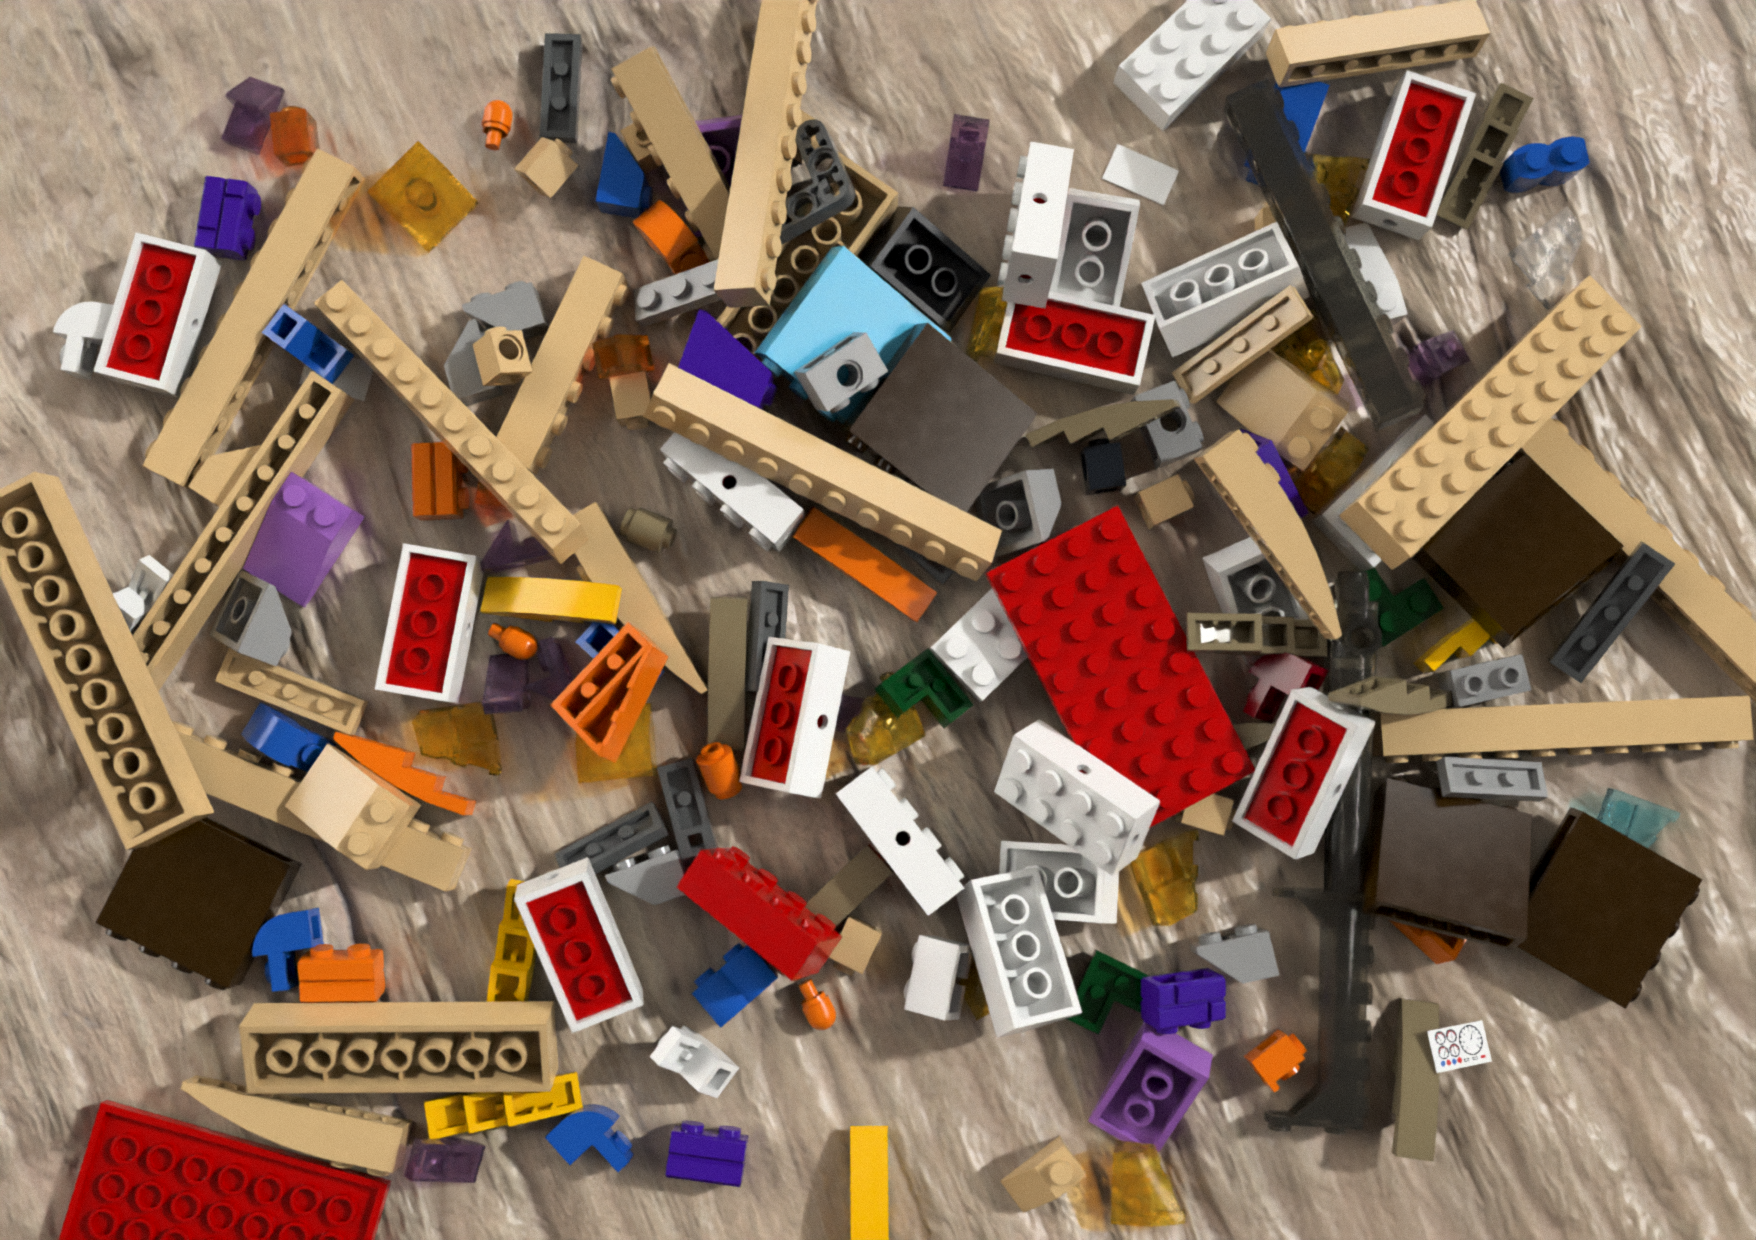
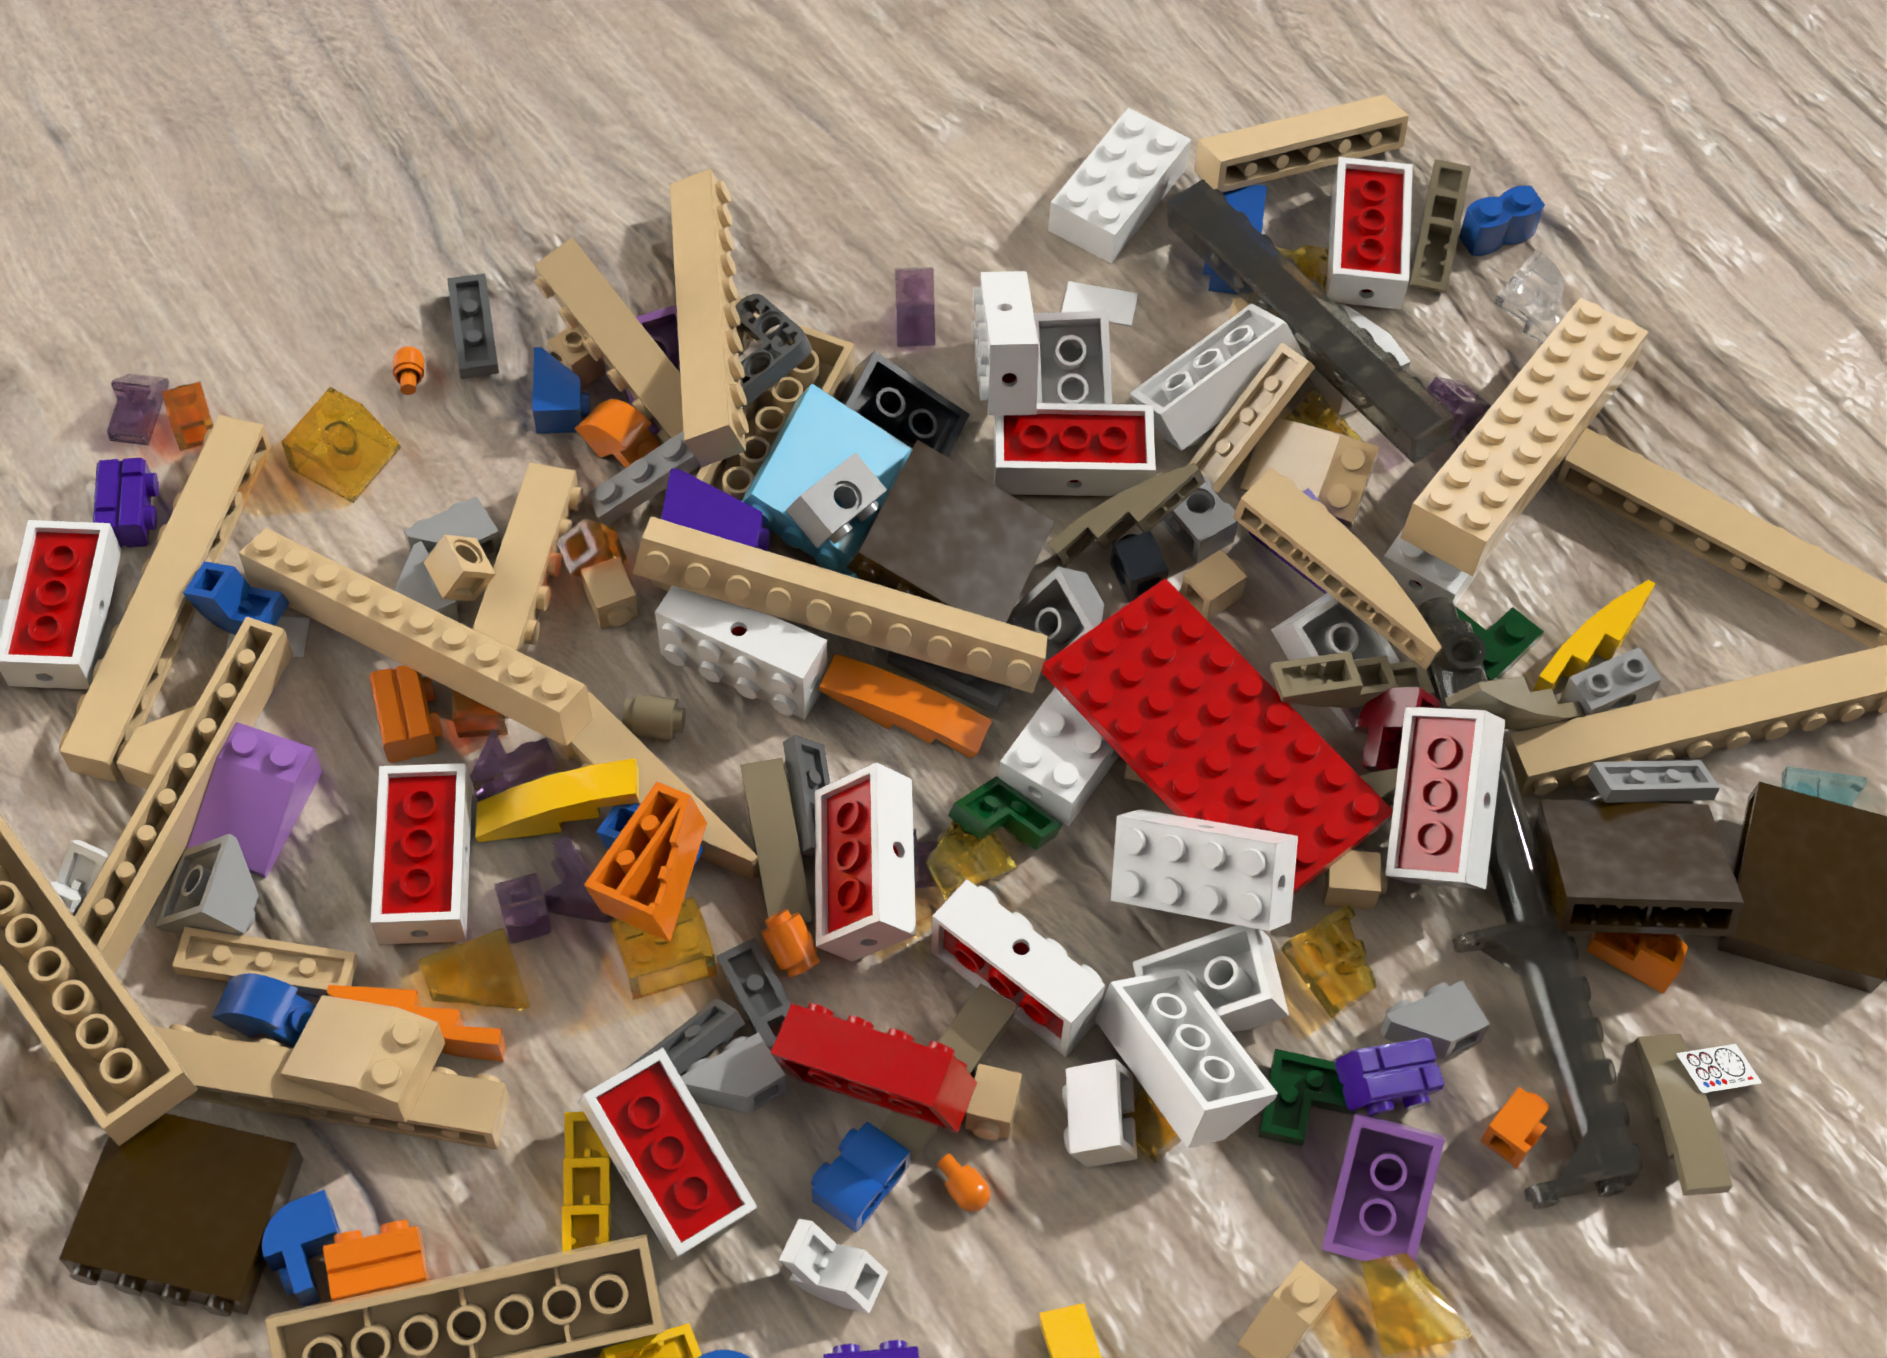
camera: 15 degrees left, 25 degrees down
(514, 641) = (521, 859): orange cylinder -> none
(547, 166) = (472, 393): tan brick -> none
(986, 324) = (978, 446): clear yellow slope -> none
(1330, 469) = (1381, 517): clear yellow slope -> none
(1517, 550) = (1595, 553): dark brown brick -> none
(1611, 611) = (1717, 595): dark grey plate -> none

